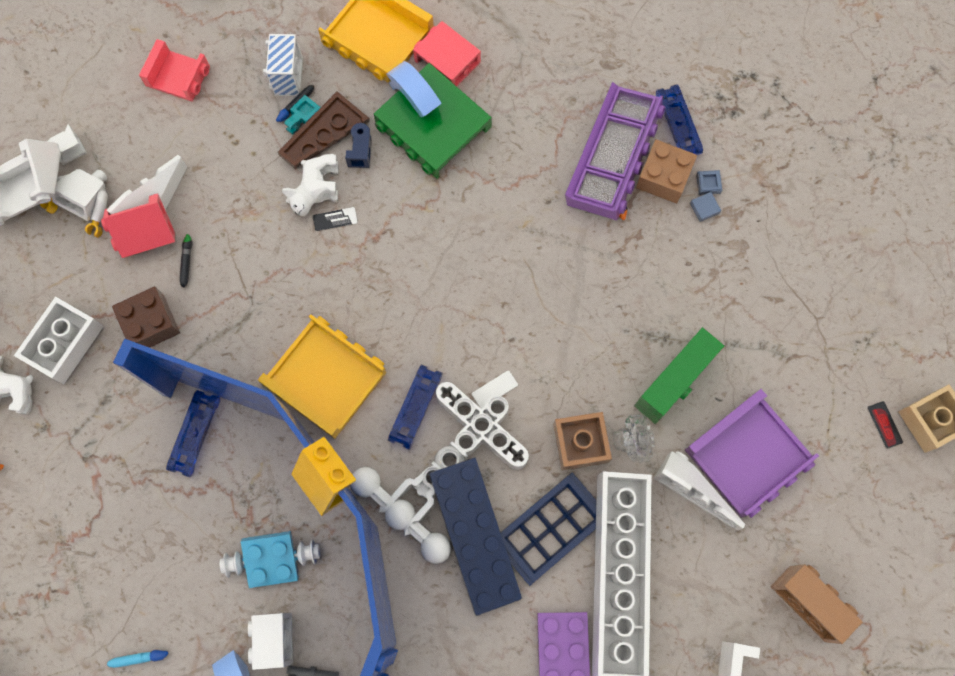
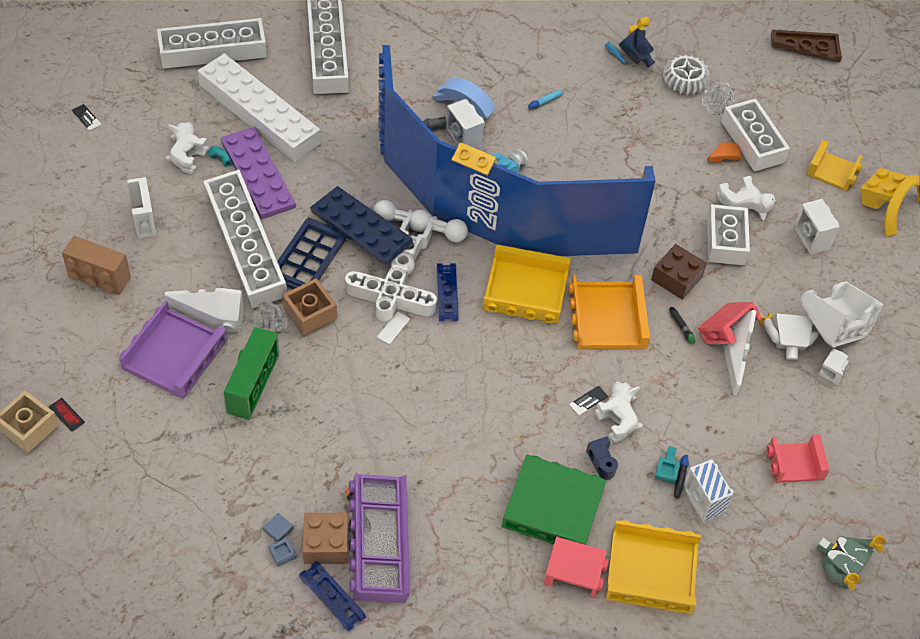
camera: 150 degrees right, 20 degrees down
(253, 304) = (609, 314): none -> light orange panel
(322, 130) = (640, 465): reddish brown wing -> none
(414, 88) = (587, 503): light blue arch -> none

